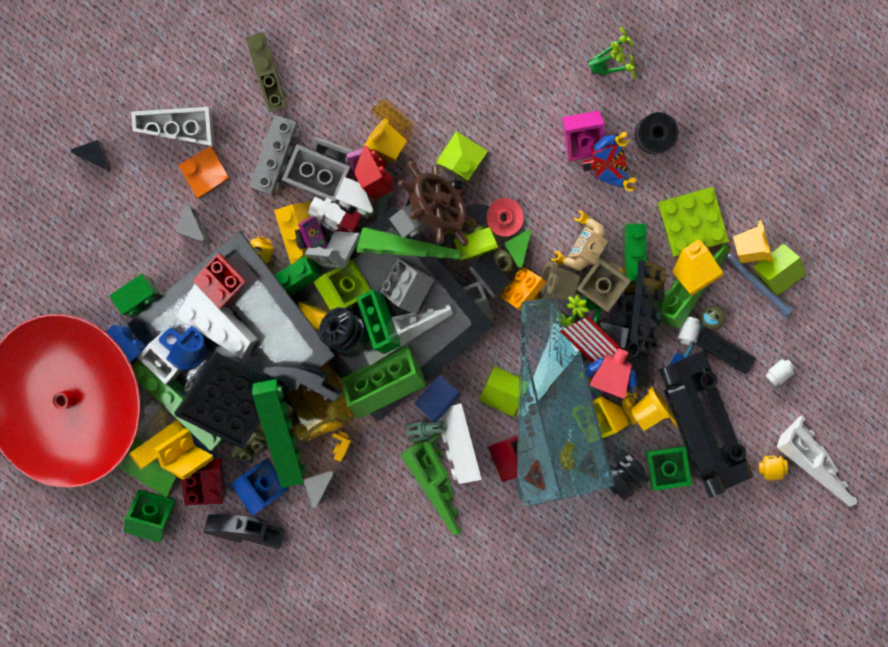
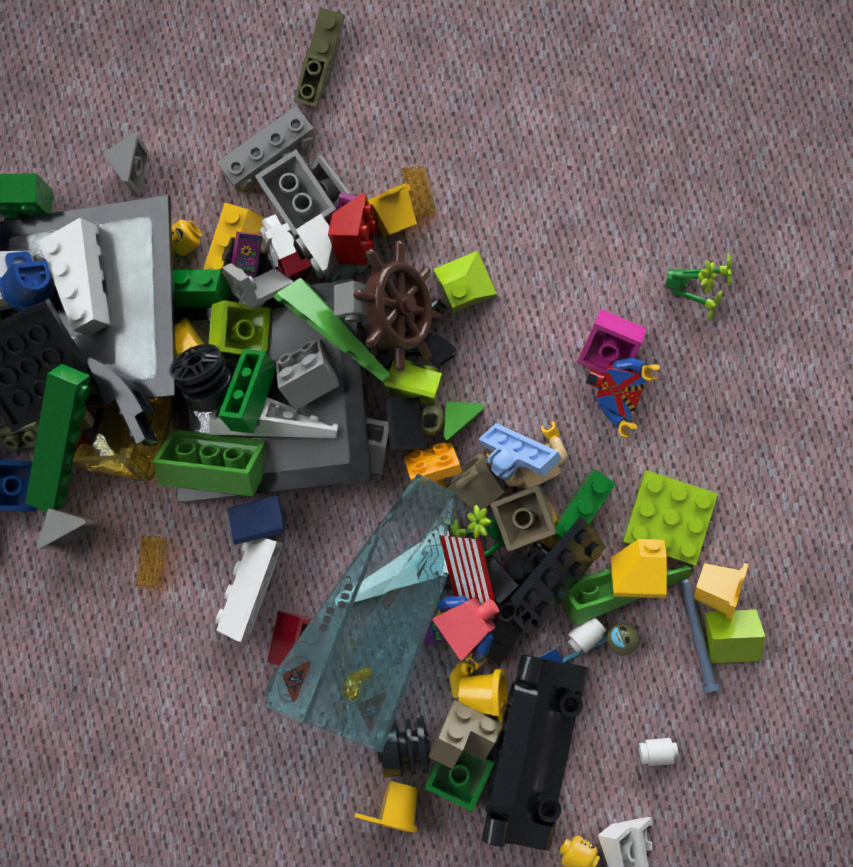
camera: 45 degrees right, 5 degrees down
(94, 153) = (85, 25): black slope -> none
(181, 124) = (195, 54): white wedge -> none
(204, 172) = (183, 119): orange plate -> none
(220, 281) = (108, 234): slope -> none
(341, 449) = (121, 505): yellow bracket -> none
(385, 470) = (151, 561): none -> clear yellow slope
(424, 430) = (221, 545): sand green arm -> none
(426, 466) = (197, 588): bright green wedge -> none
(501, 391) = (332, 558): lime slope -> none
(513, 219) = (476, 382): coral dish -> none
(571, 245) = (515, 451): none -> light blue plate
(609, 416) = (432, 670): yellow slope -> none
(644, 515) = (397, 808): none -> yellow container
(654, 440) = (464, 731): none -> dark tan brick
(667, 131) = (704, 382): black wheel -> none
(725, 351) = (611, 685): black tile -> none

